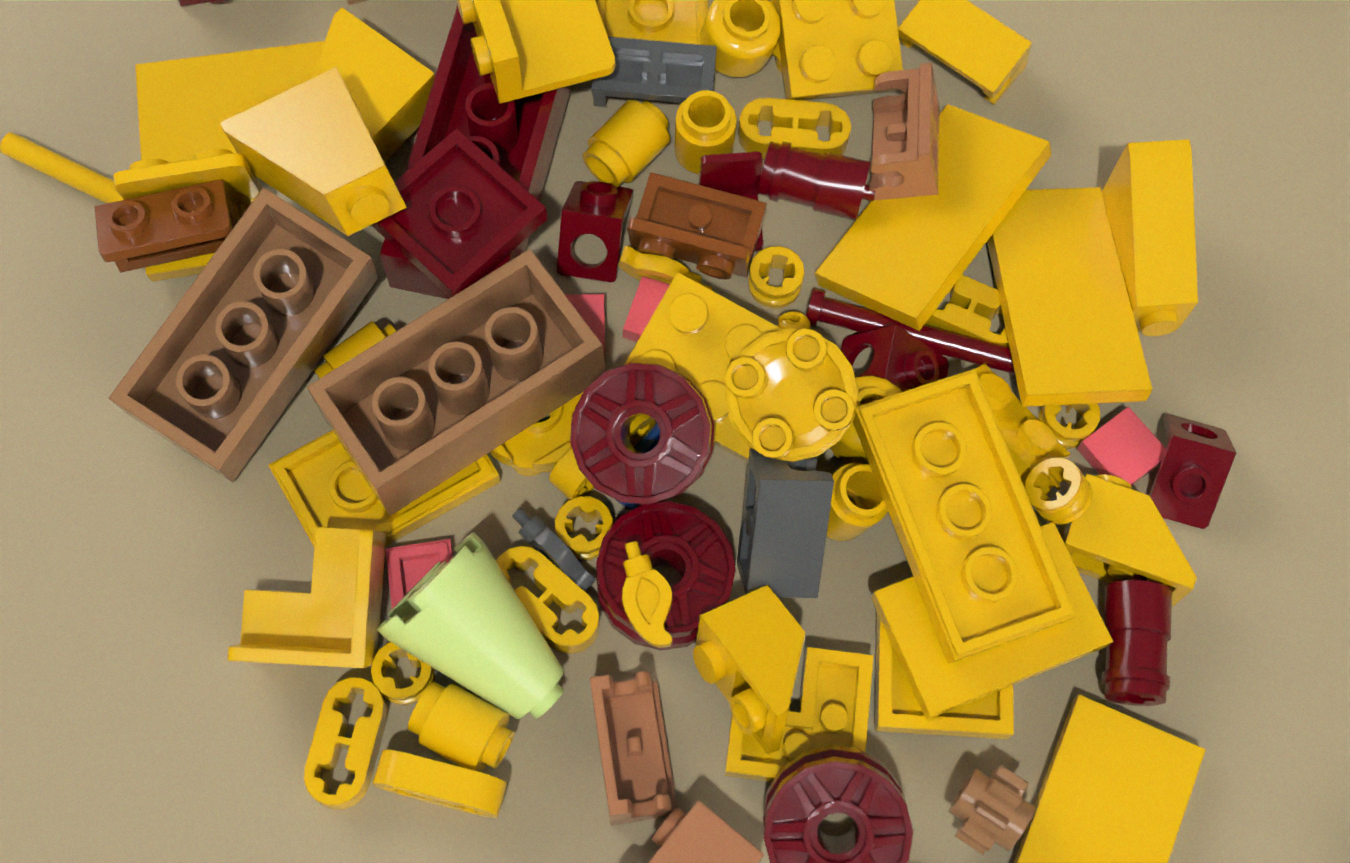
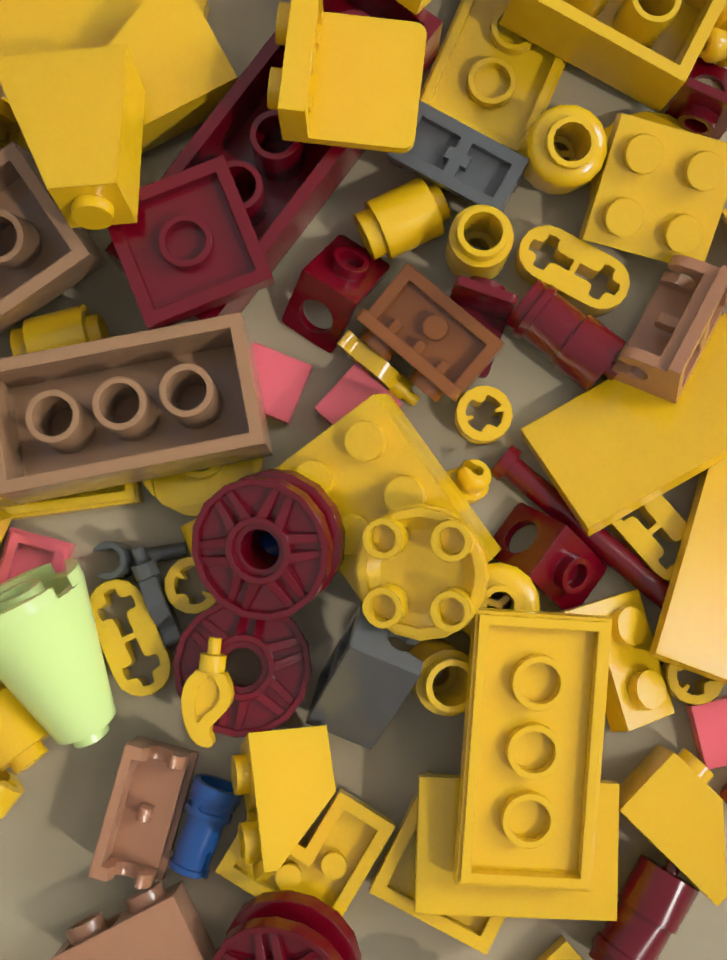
camera: 25 degrees right, 15 degrees up
(494, 523) = (124, 570): none -> dark grey hand
(693, 723) = (208, 813): none -> blue pin
(1051, 474) = (658, 755): yellow bush -> none

